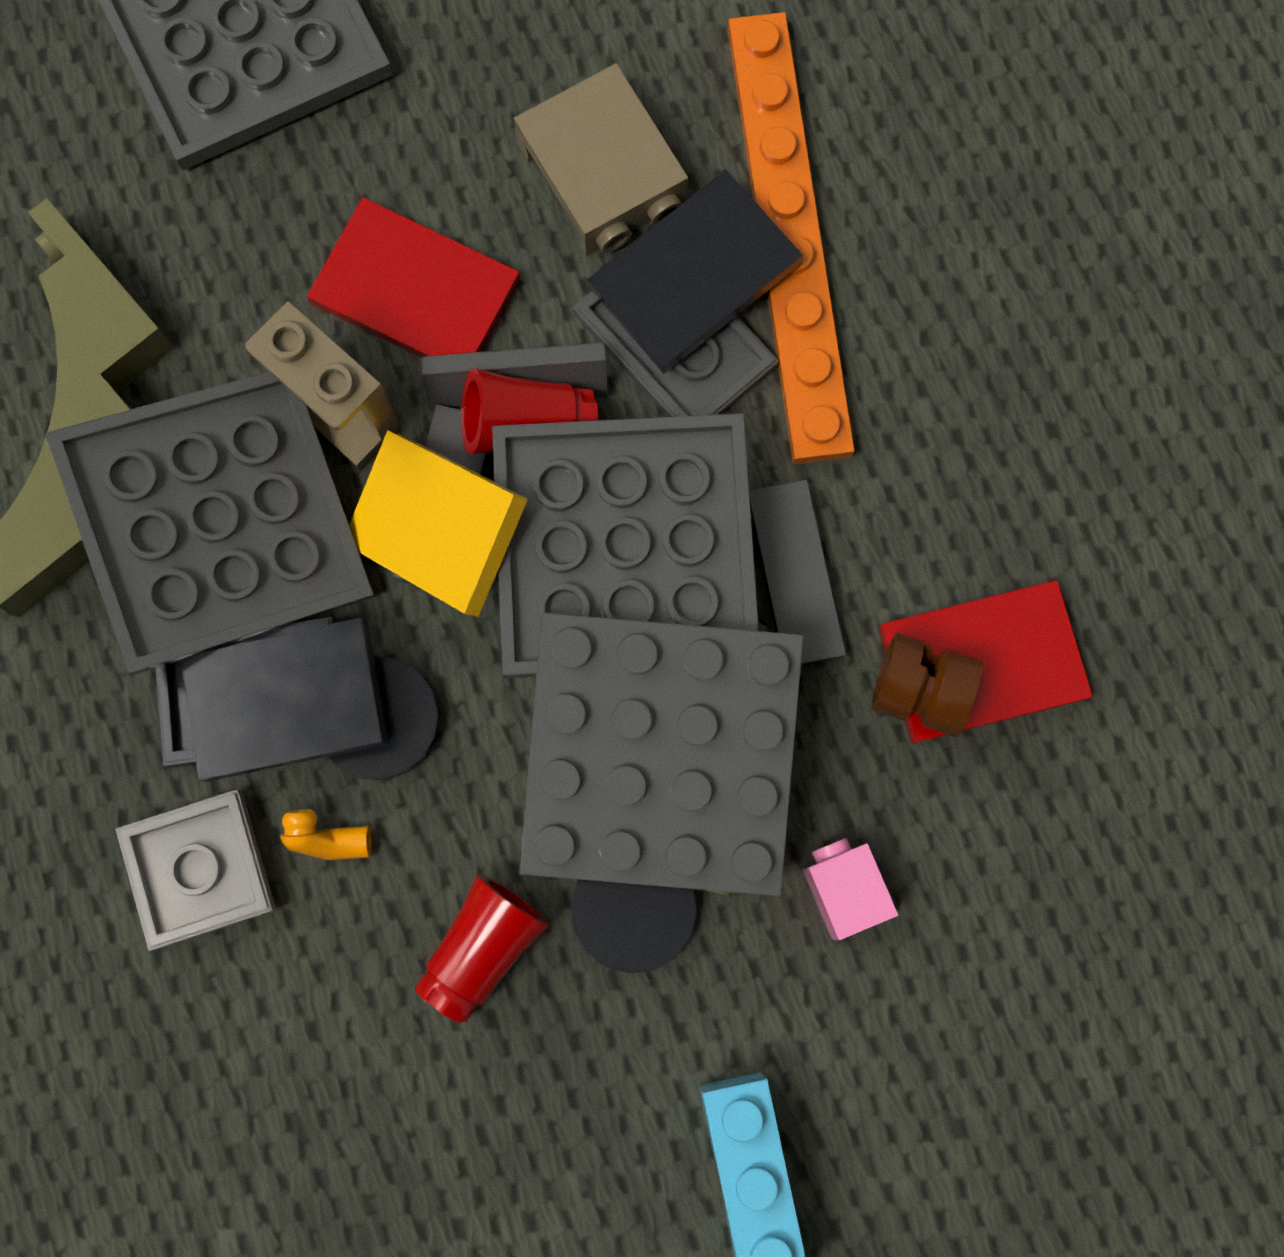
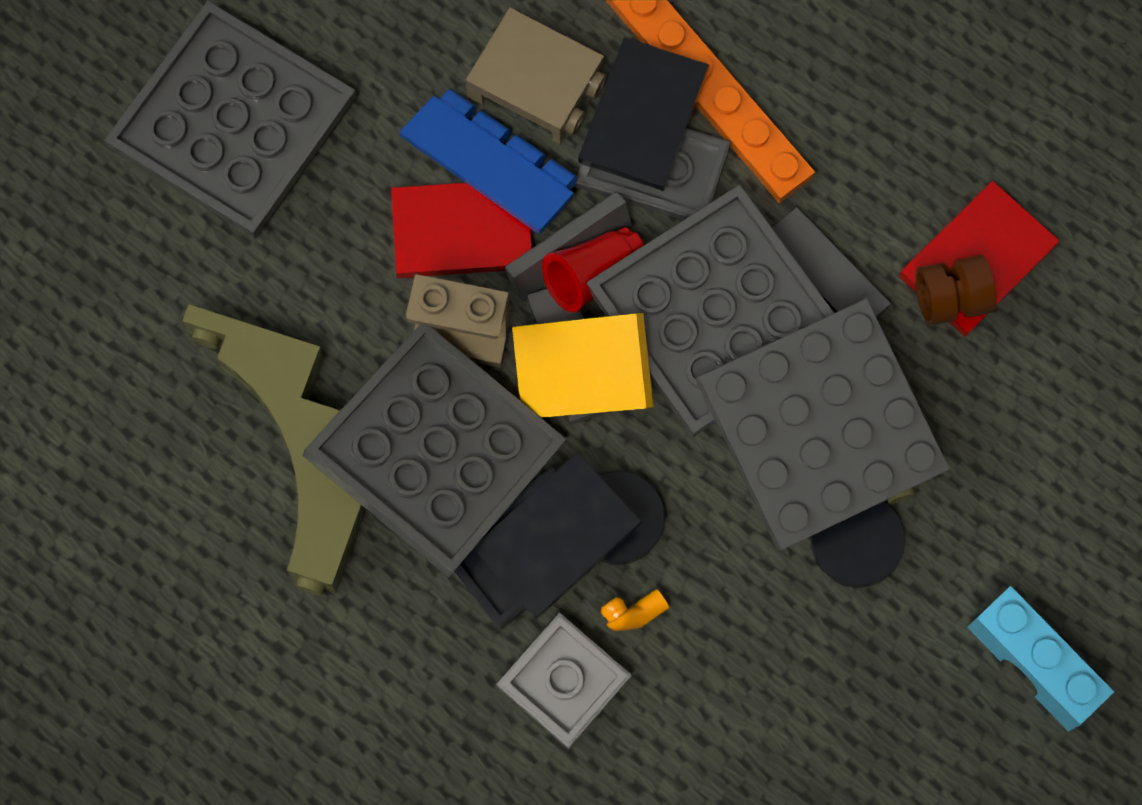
camera: 30 degrees left, 5 degrees down
(479, 948) = (779, 618): red plant -> none
(494, 229) = (480, 159): none -> blue windscreen
(848, 889) = (984, 446): bright pink brick -> none

